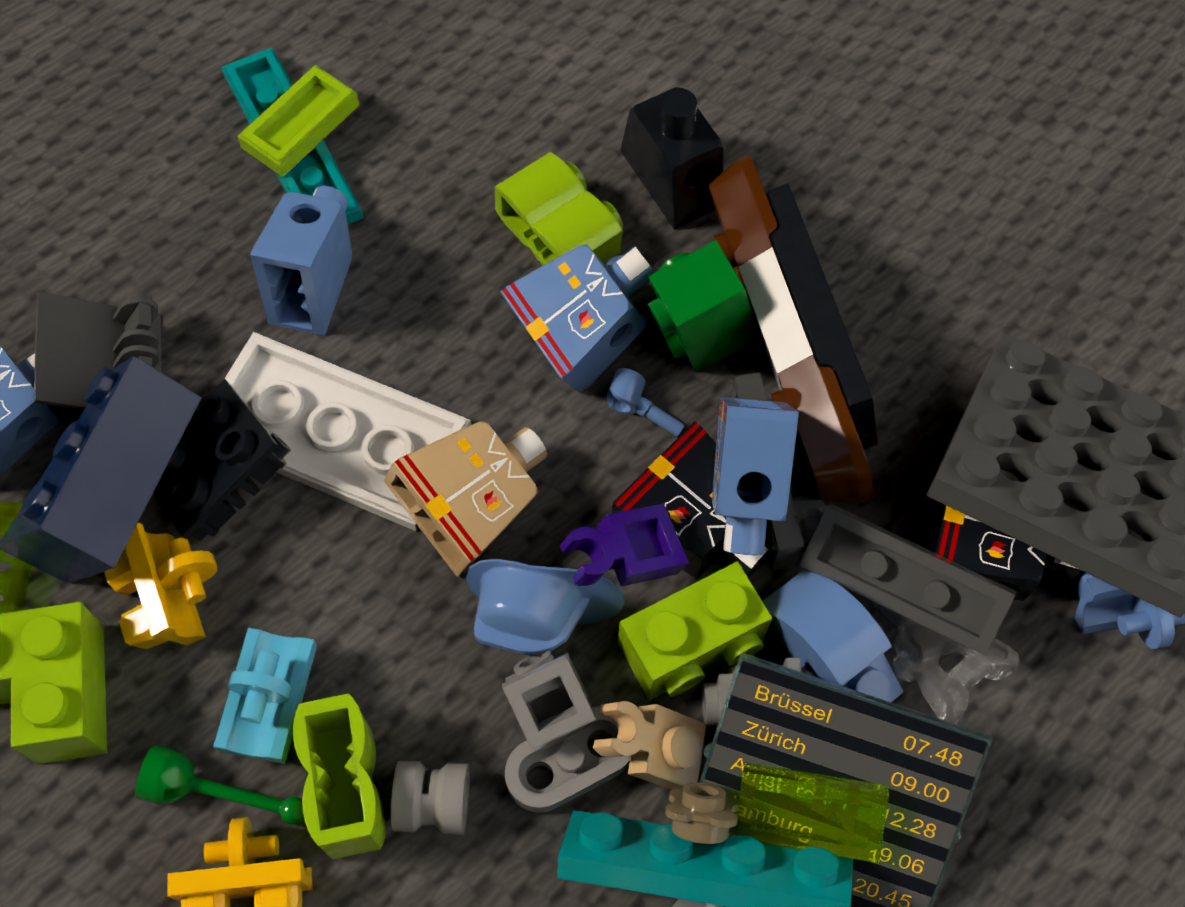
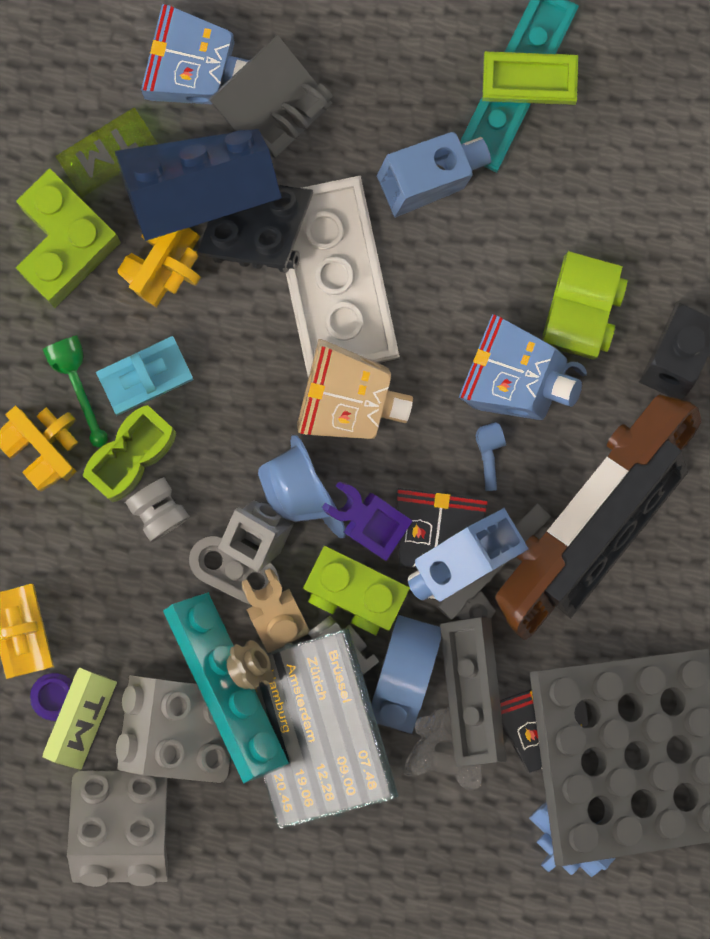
camera: 55 degrees right, 20 degrees up
(702, 307) = (566, 447): green brick -> none
(812, 811) = (293, 725): clear neon green tile -> none

